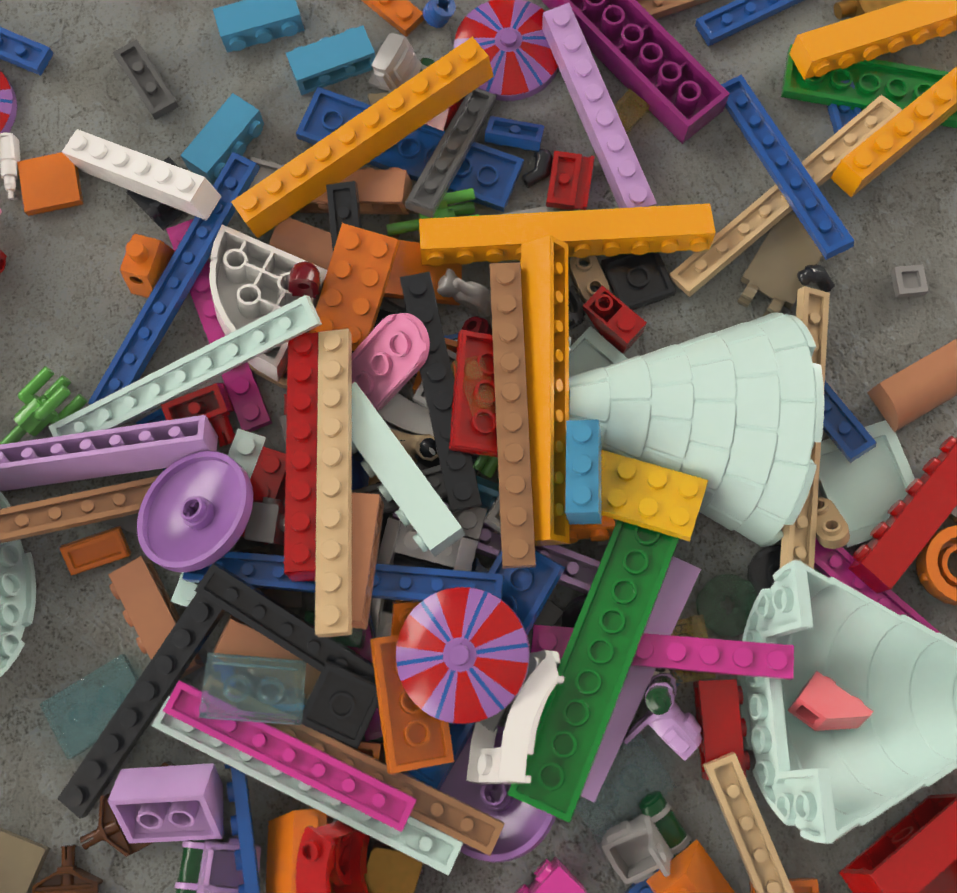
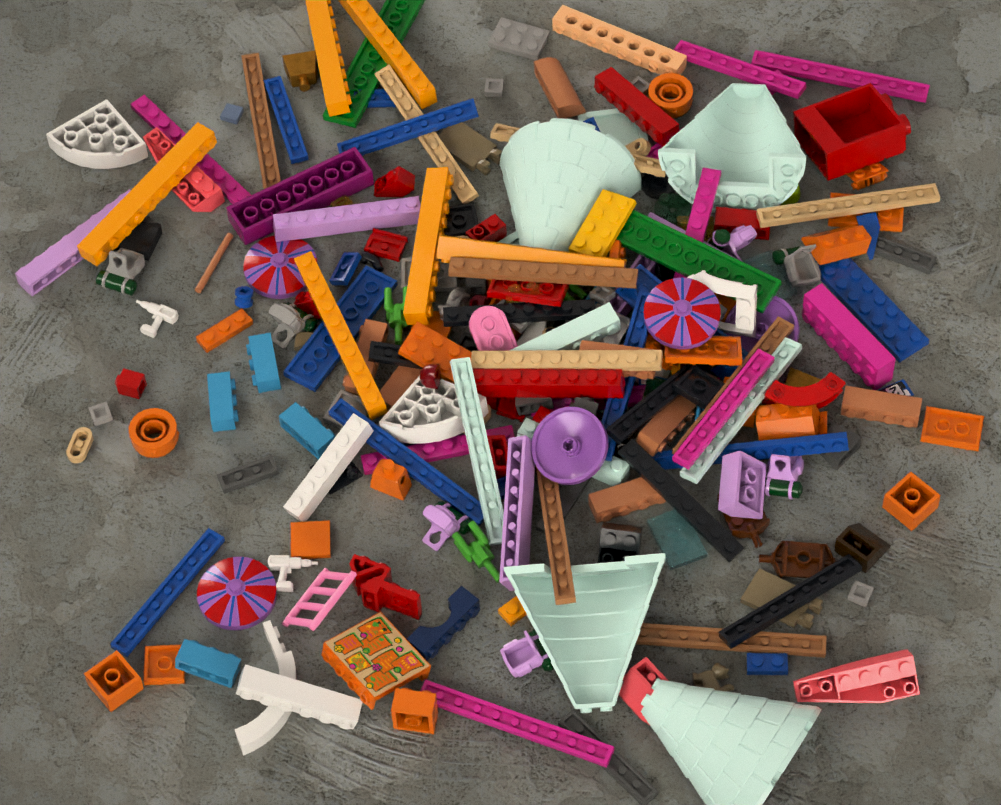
camera: 80 degrees left, 20 degrees down
(67, 619) = (619, 541): none -> black slope
(73, 349) = (445, 520): none -> lavender piece
(95, 550) = (578, 528): orange tile -> none
(253, 689) = (683, 422): clear light blue tile -> none
(450, 153) = (364, 301): dark grey tile -> none
(583, 472) = (588, 241): dark azure brick -> none
(684, 170) = (395, 183): none -> red slope
(818, 275) = (482, 129): black arm -> none
(827, 706) = (737, 166): coral slope -> none

